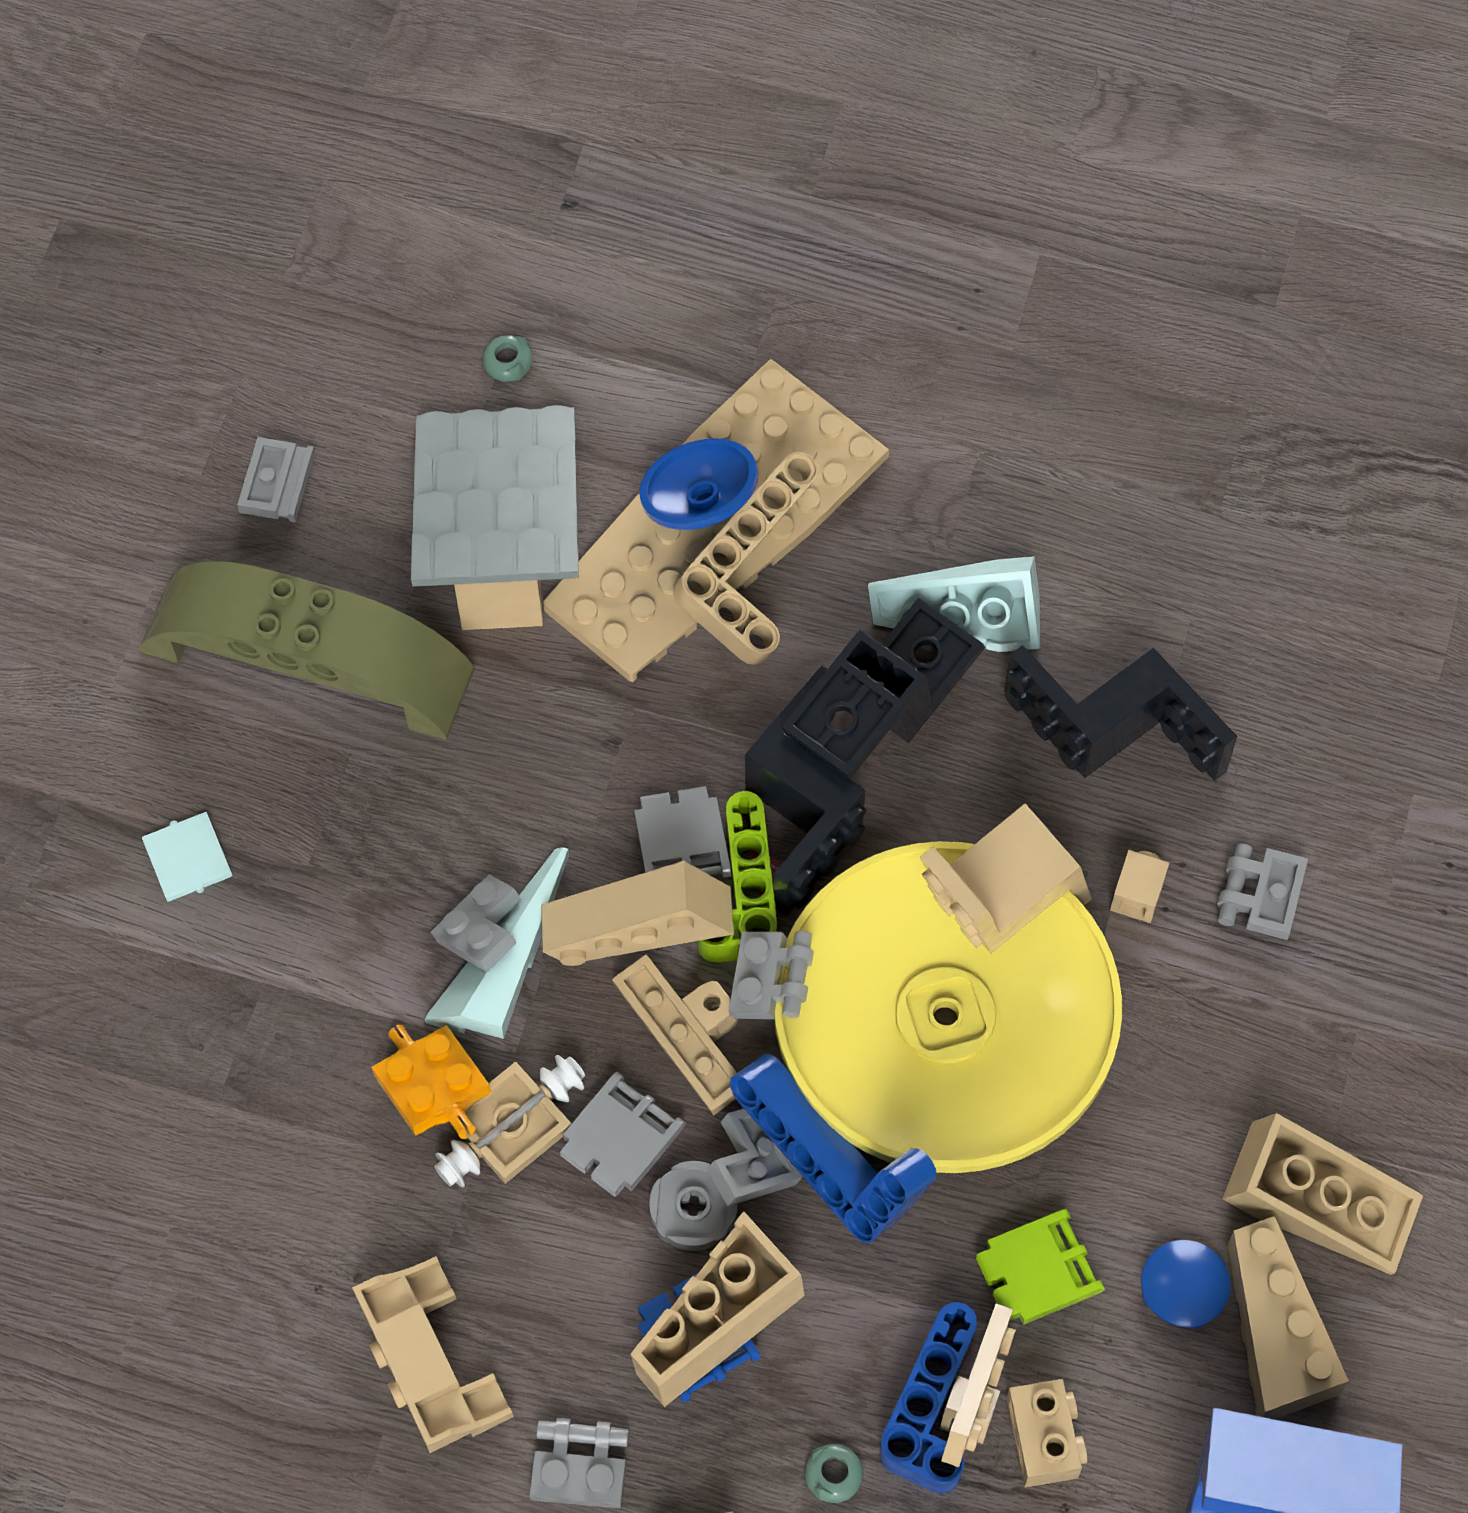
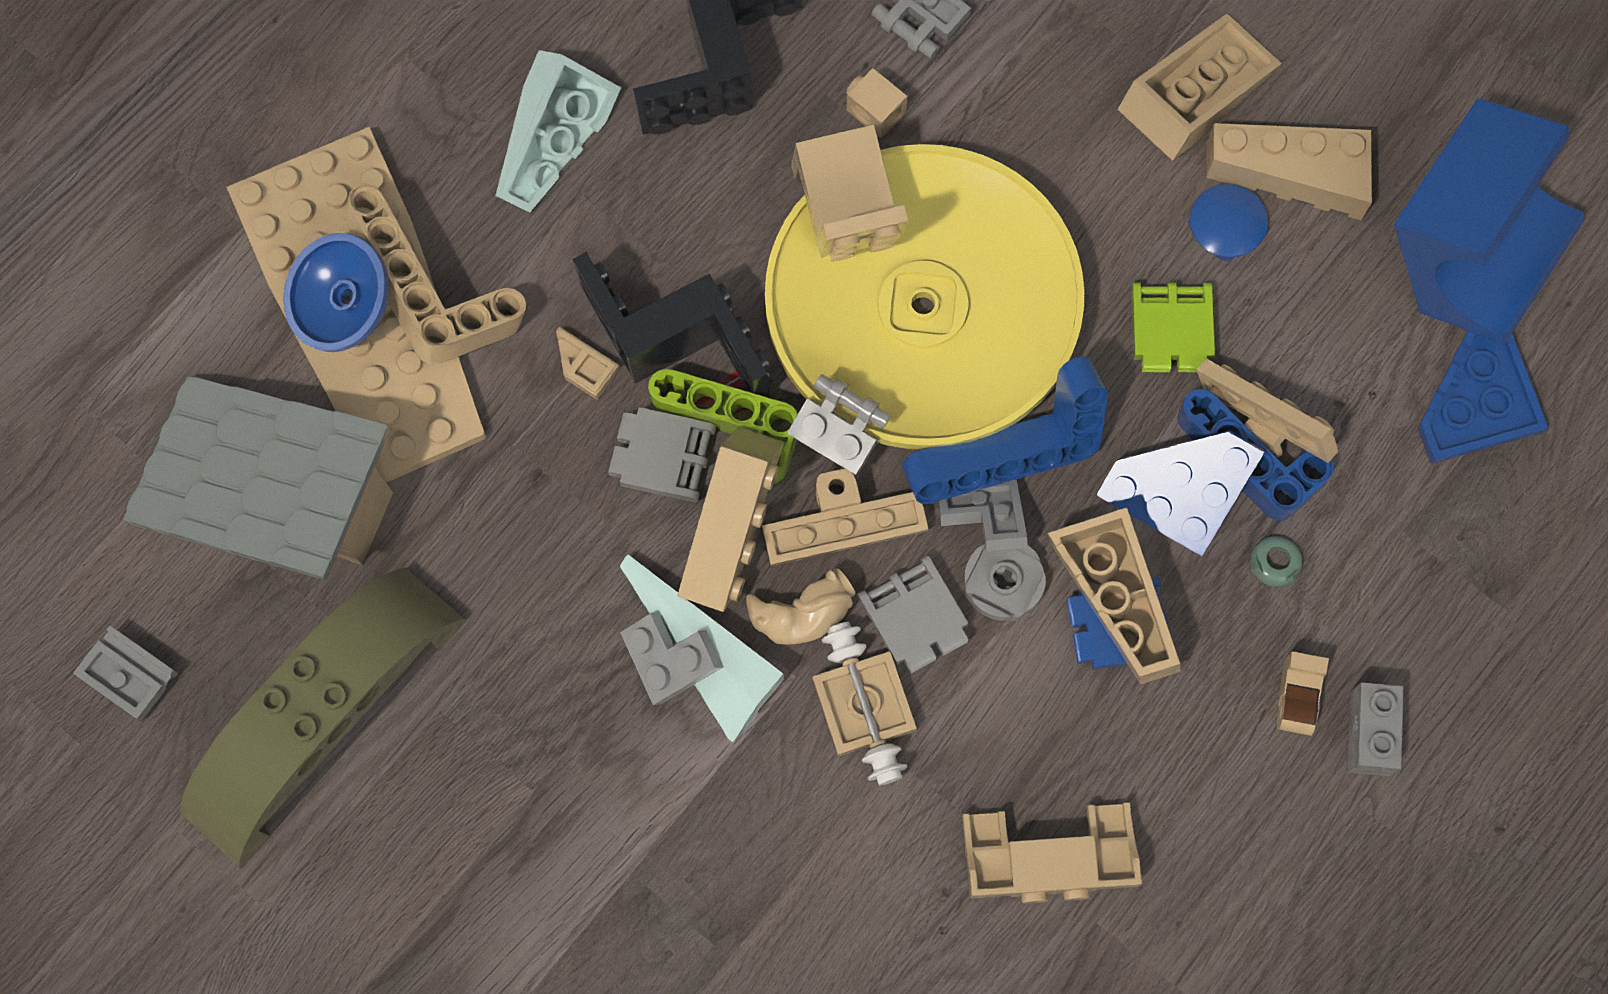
camera: 65 degrees left, 10 degrees up
(187, 856) = (474, 898): light aqua piece -> none
(431, 1080) = (799, 756): light orange plate -> none
(507, 371) = (116, 422): sand green piece -> none
(573, 1033) = (809, 616): none -> tan animal
(579, 1478) = (1202, 770): light grey plate -> none
(739, 733) = (585, 365): none -> tan tile
(865, 1341) = (1184, 485): none -> plate
(882, 688) = (615, 220): black bracket -> none
(1045, 1433) = (1314, 379): tan brick -> none

